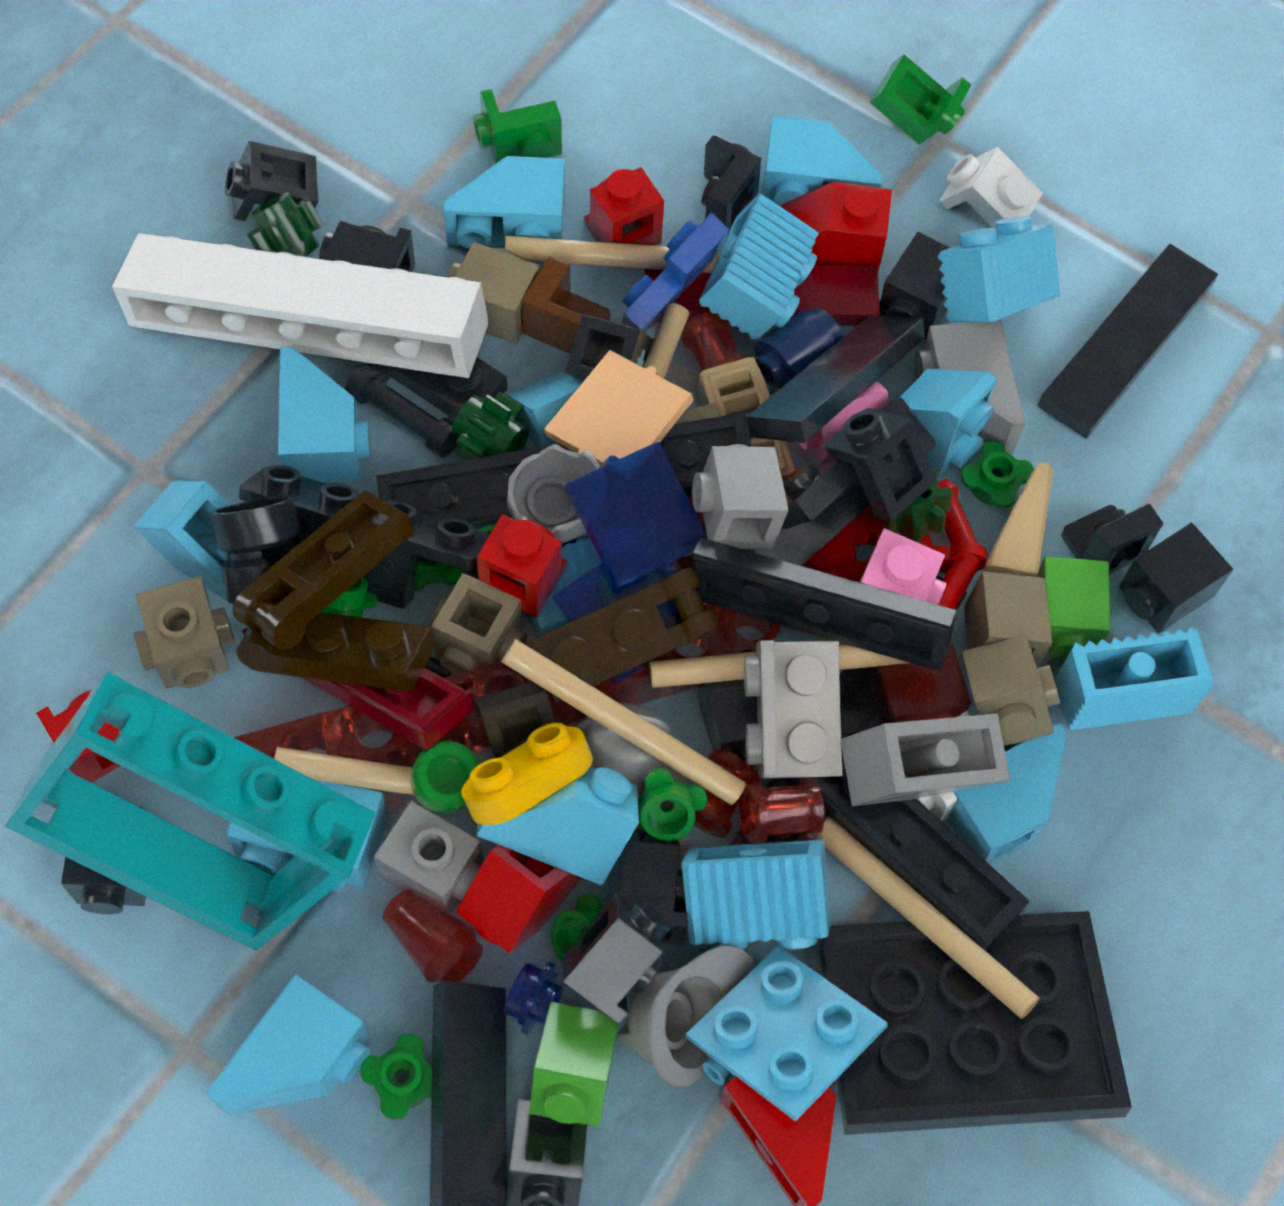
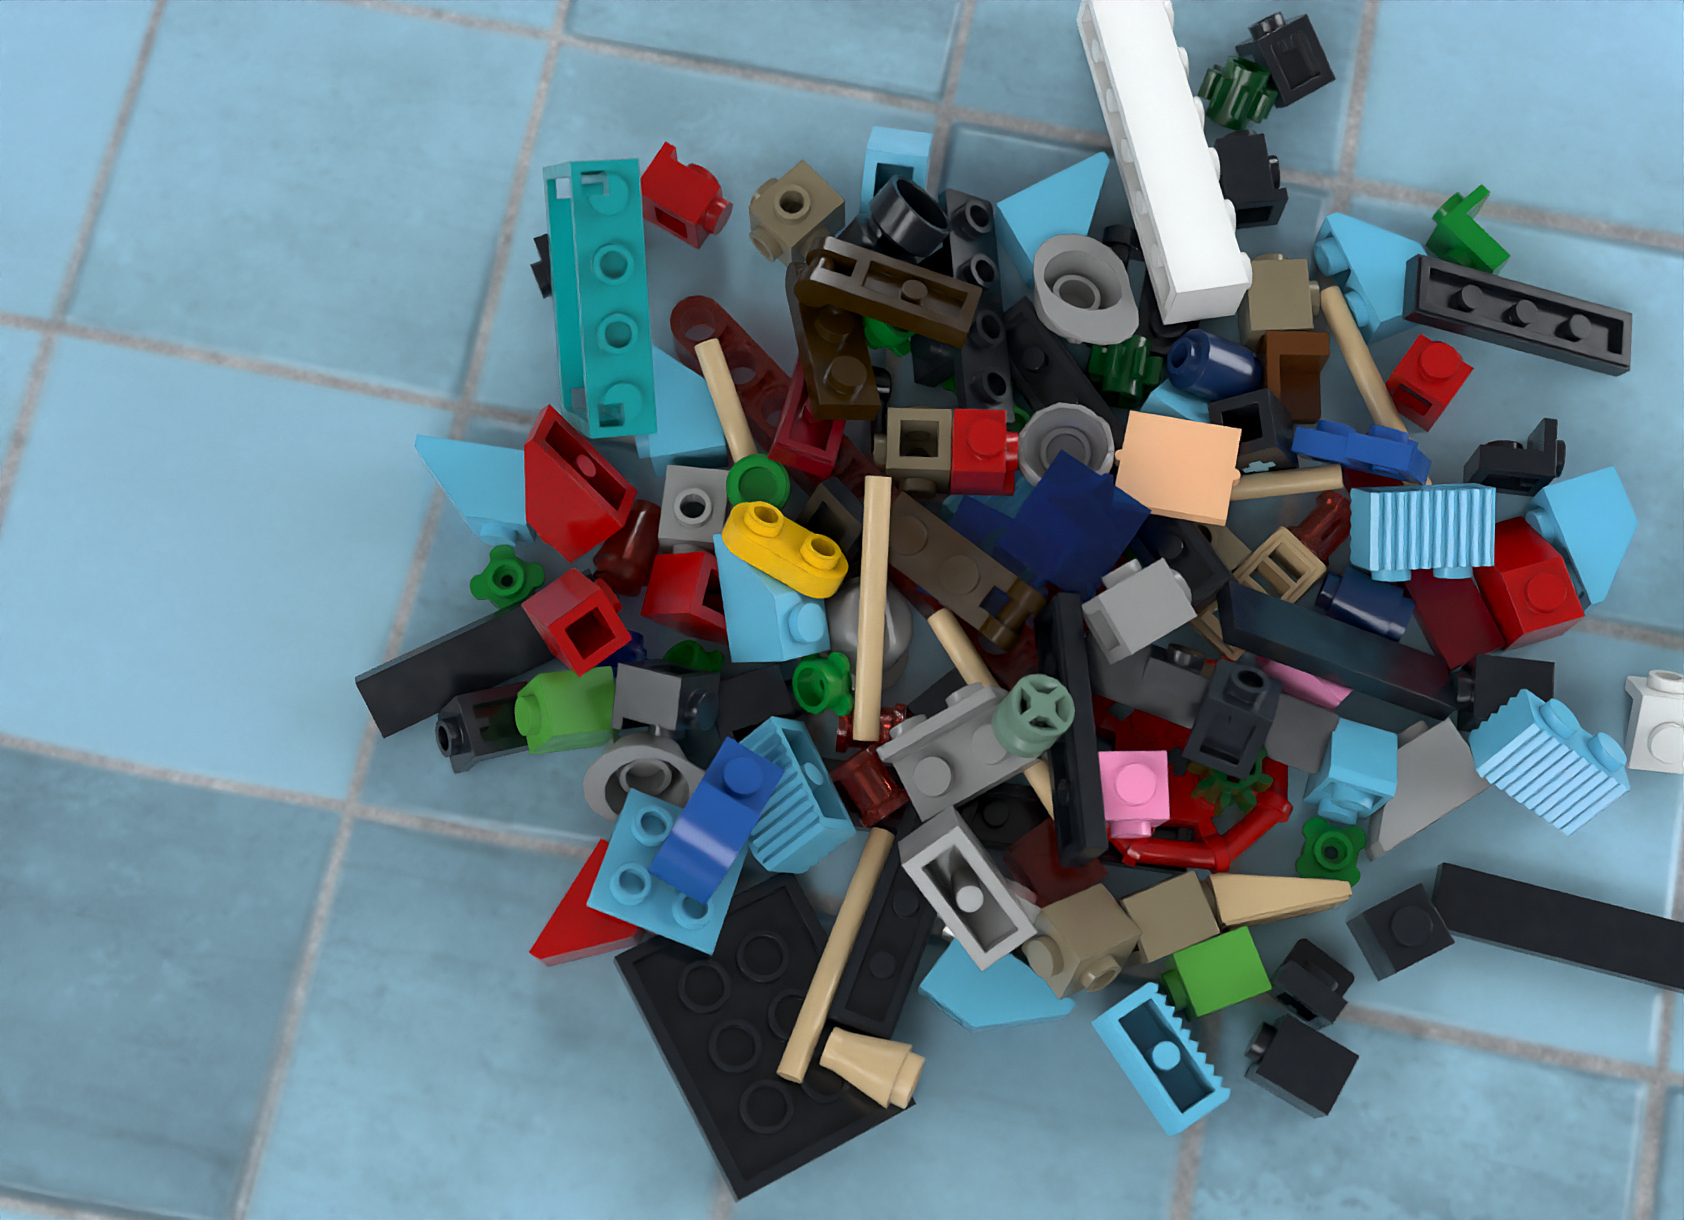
camera: 70 degrees right, 10 degrees up
(355, 956) = (571, 489): none -> red slope
(410, 420) = (1083, 291): none -> light grey piece
(496, 1007) = (578, 620): none -> red brick
(527, 360) = (1212, 366): none -> dark blue brick
(604, 124) = (1517, 315): none -> black tile
(781, 950) = (716, 821): none -> blue brick
(804, 619) = (1032, 699): none -> sand green wheel
(1051, 922) = (874, 1065): none -> tan cone
(1091, 450) = (1400, 932): none -> black brick

